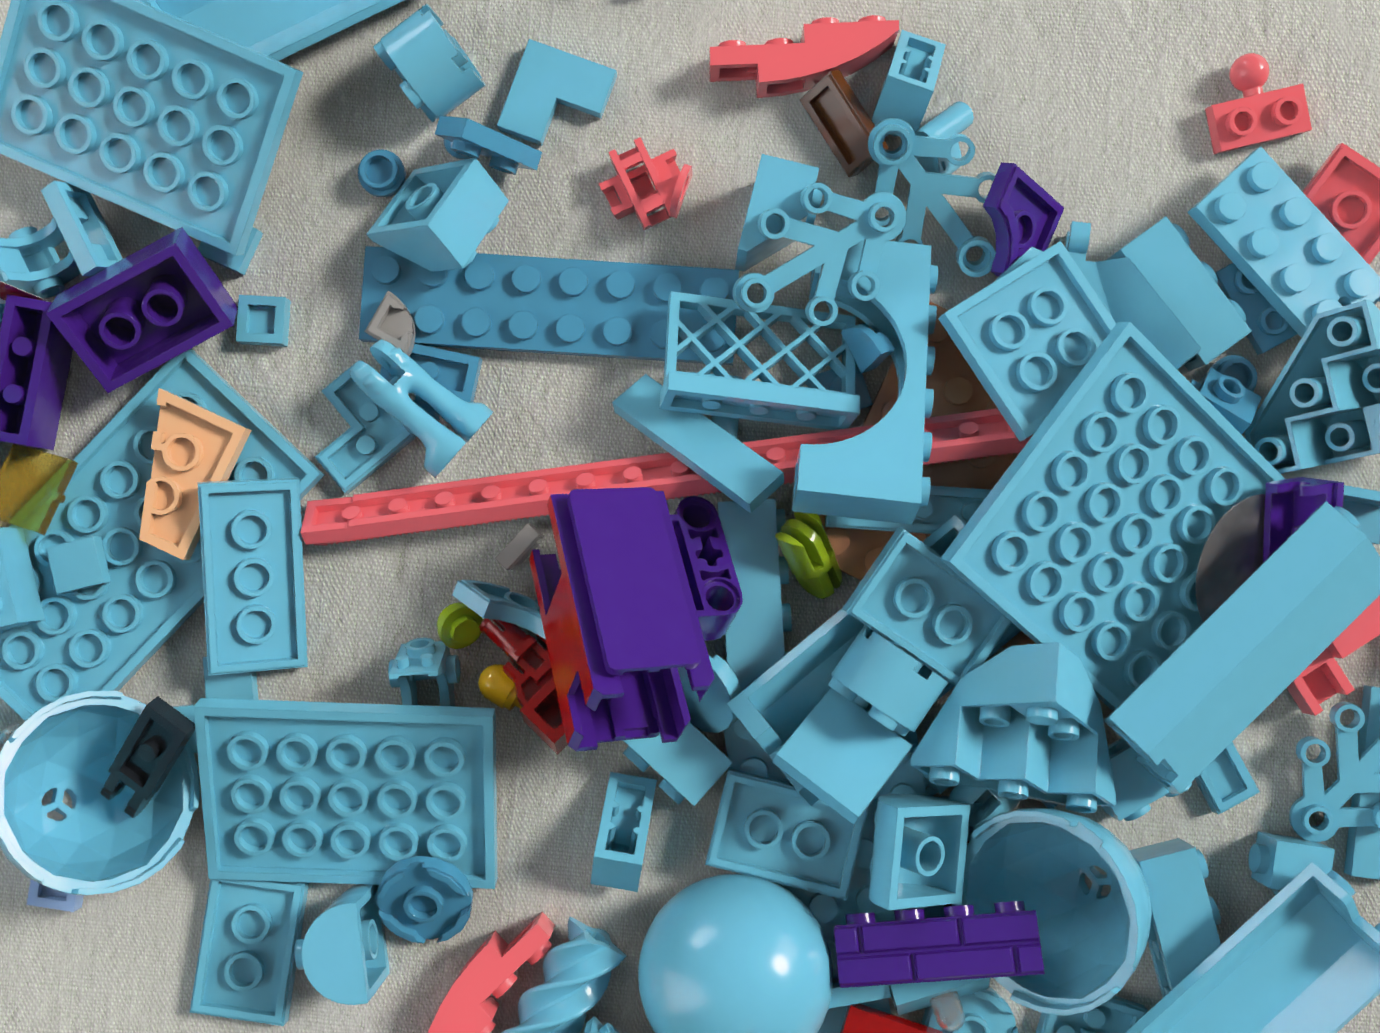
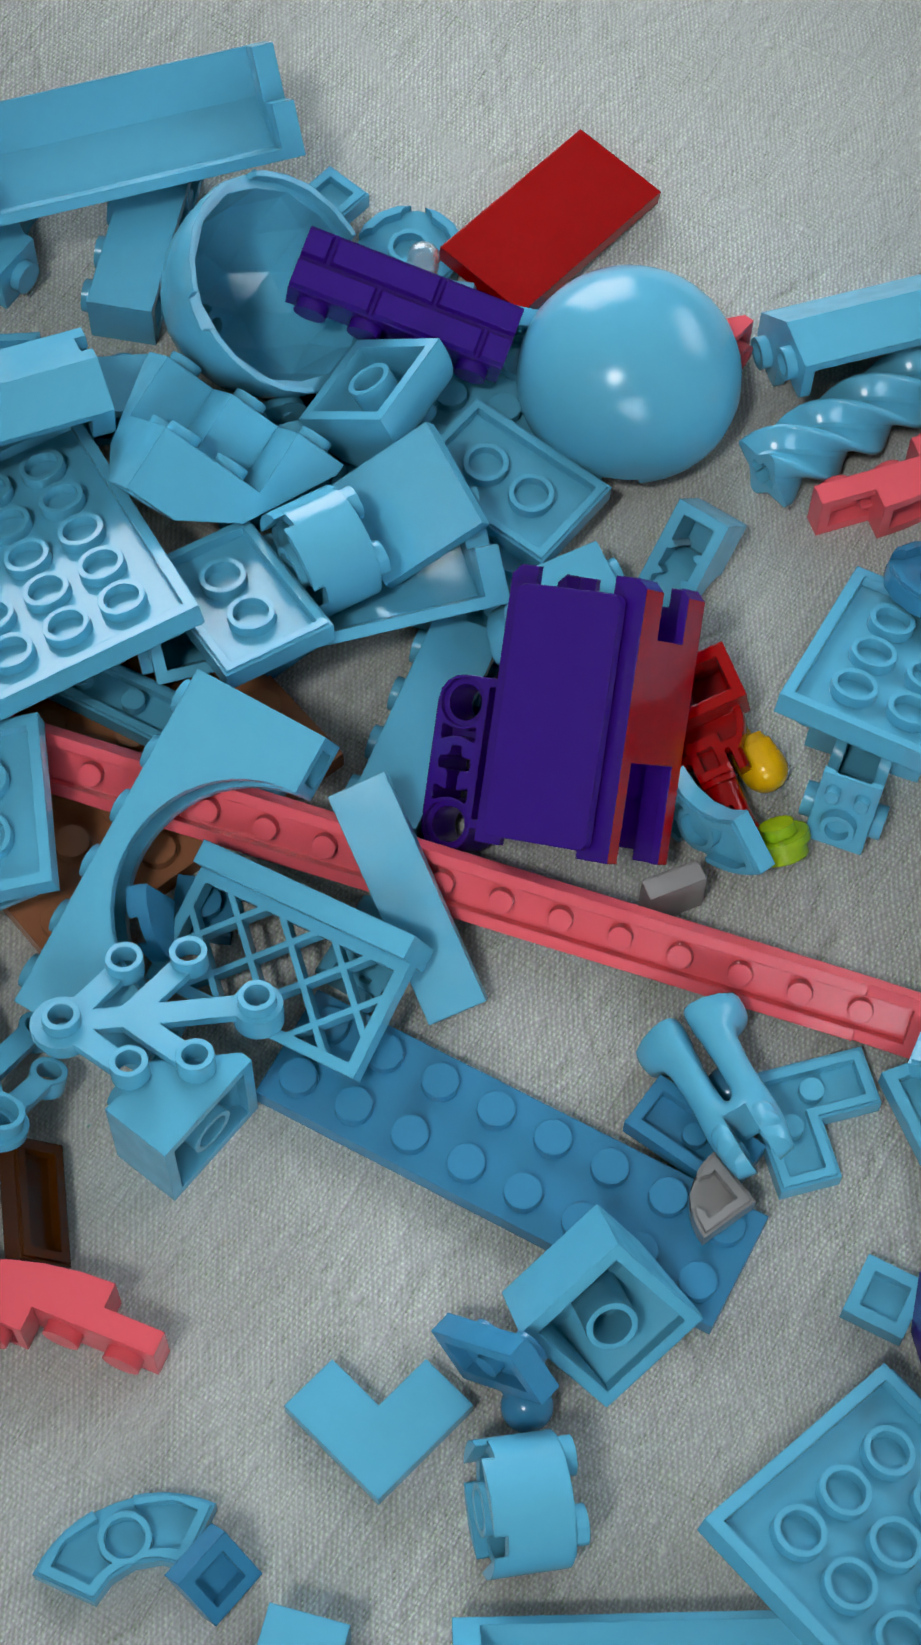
camera: 160 degrees left, 25 degrees down
(381, 173) = (651, 1415): dark azure plate -> none
(637, 190) = (308, 1250): coral piece -> none
(810, 554) = (345, 727): lime arm -> none

